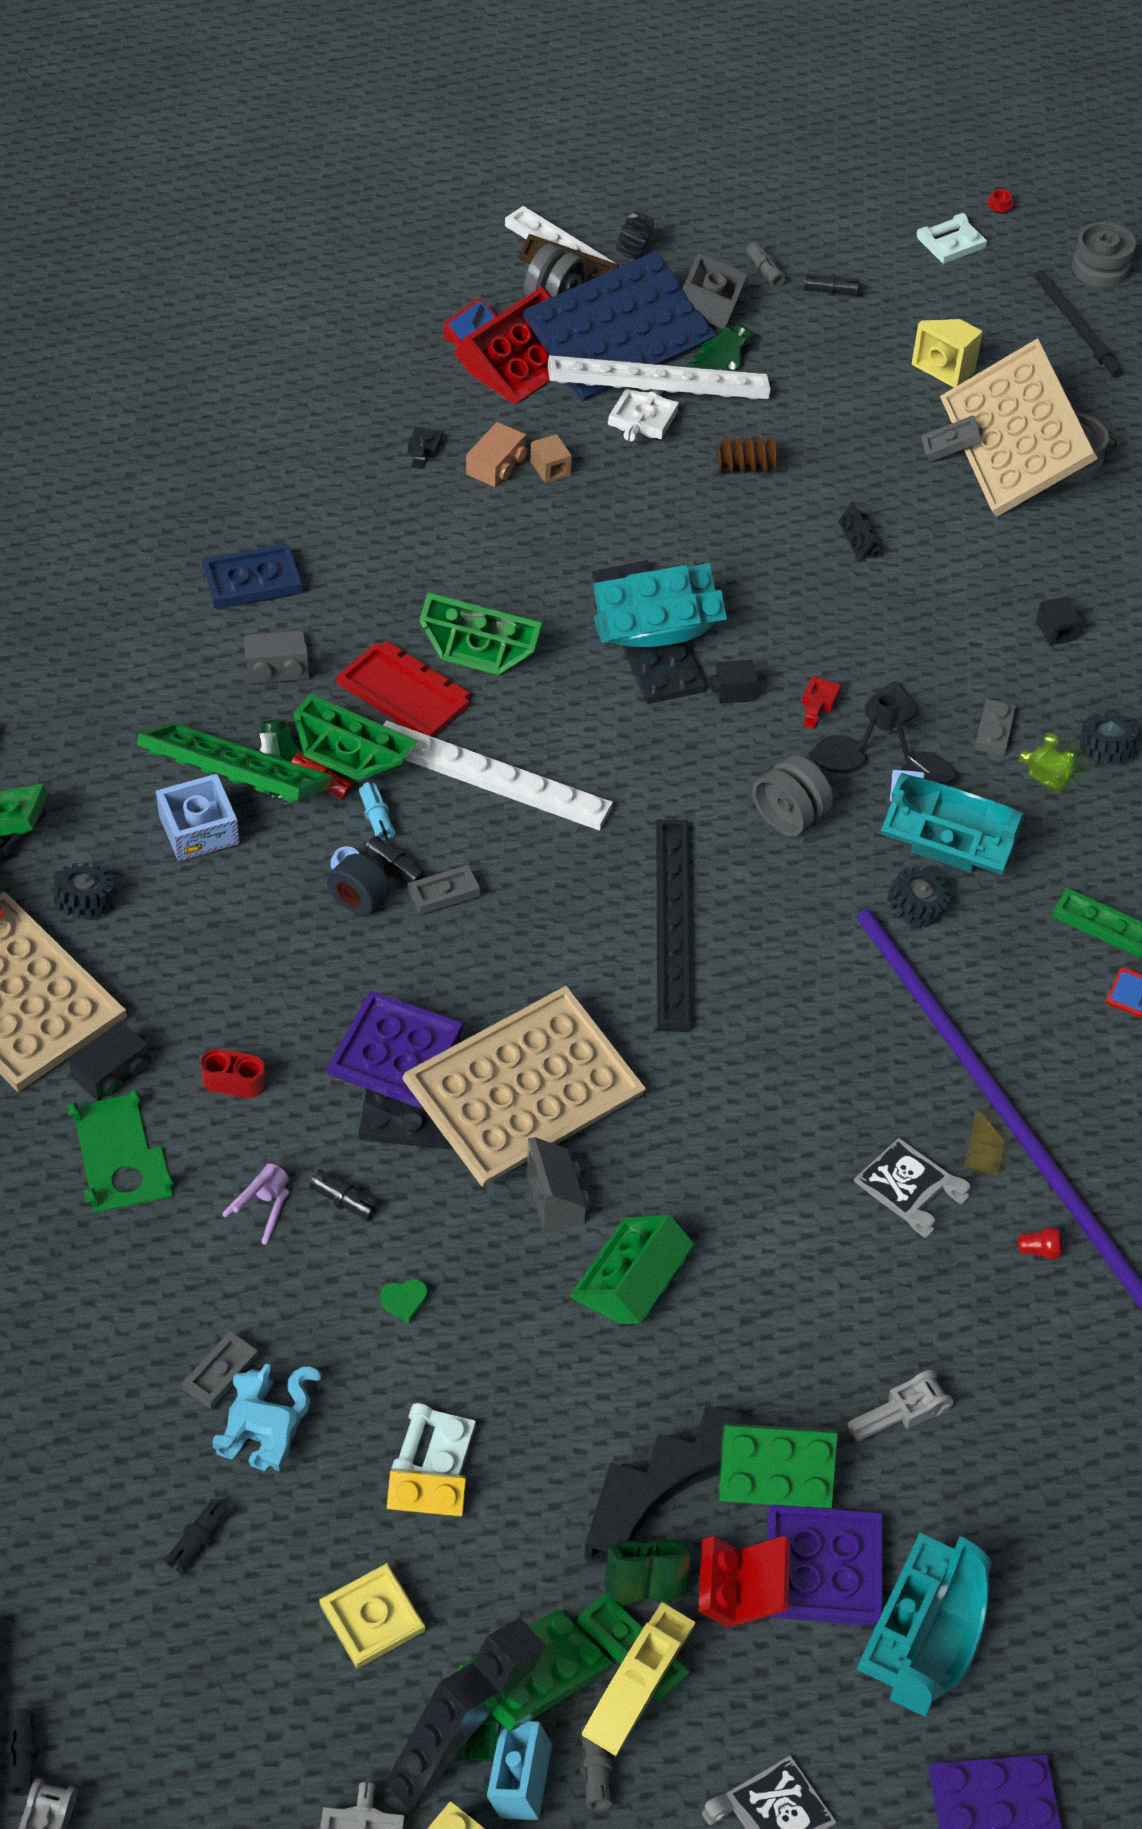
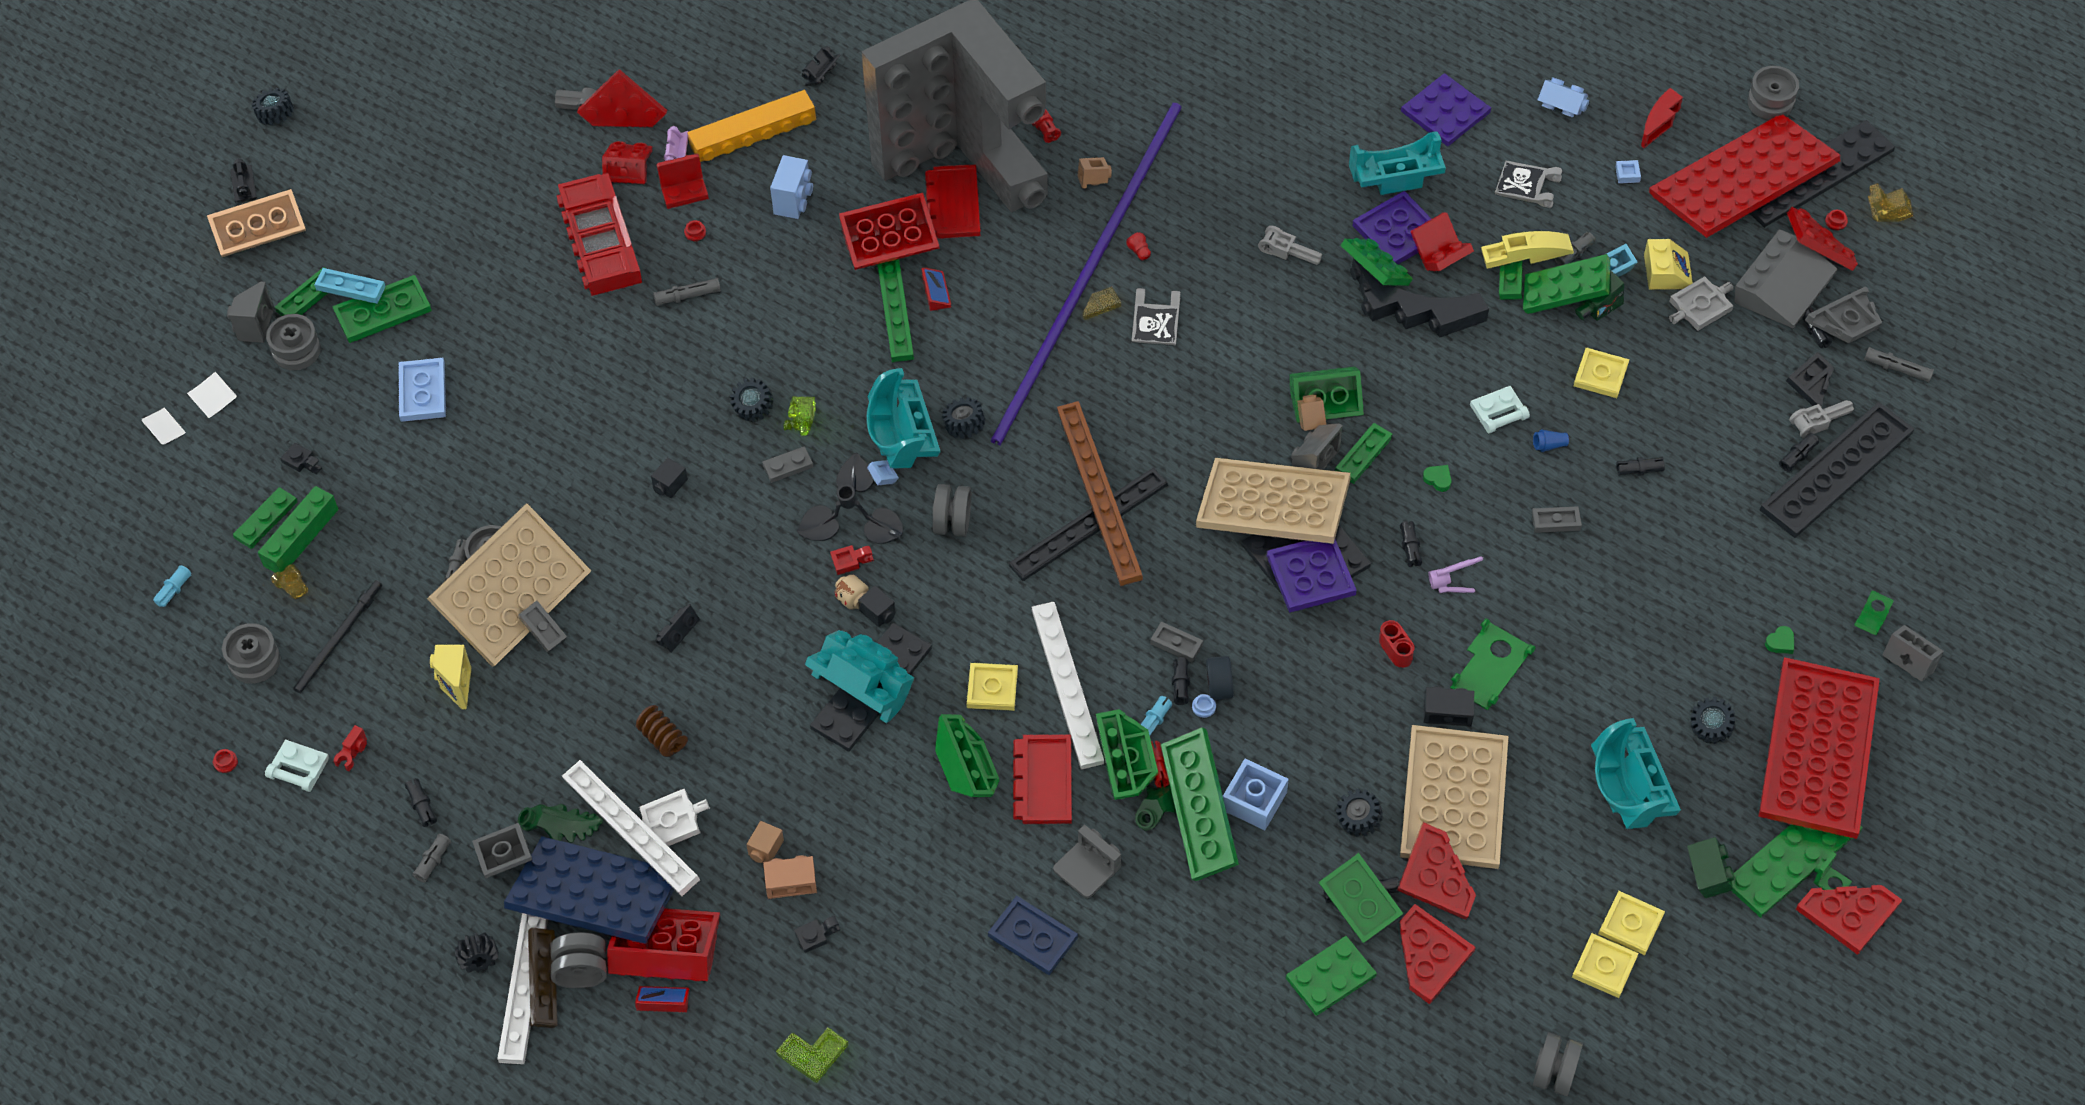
camera: 125 degrees left, 5 degrees up
(264, 1421) = (1562, 475): medium azure animal -> none
(306, 376) = (814, 1059): none -> clear neon green plate
(334, 1458) = (1548, 440): none -> blue cone
(426, 1492) = (1524, 391): yellow plate -> none
(460, 1707) = (1622, 270): black arch -> none
(511, 1243) = (1364, 452): none -> green plate
(549, 713) = (992, 686): none -> light yellow plate
(611, 1220) = (1311, 412): none -> medium nougat brick
(646, 1571) = (1476, 279): dark green brick -> none
(700, 943) = (1099, 494): none -> dark orange plate
(774, 673) = (849, 590): none -> tan head
(937, 270) = (354, 743): none -> red plate

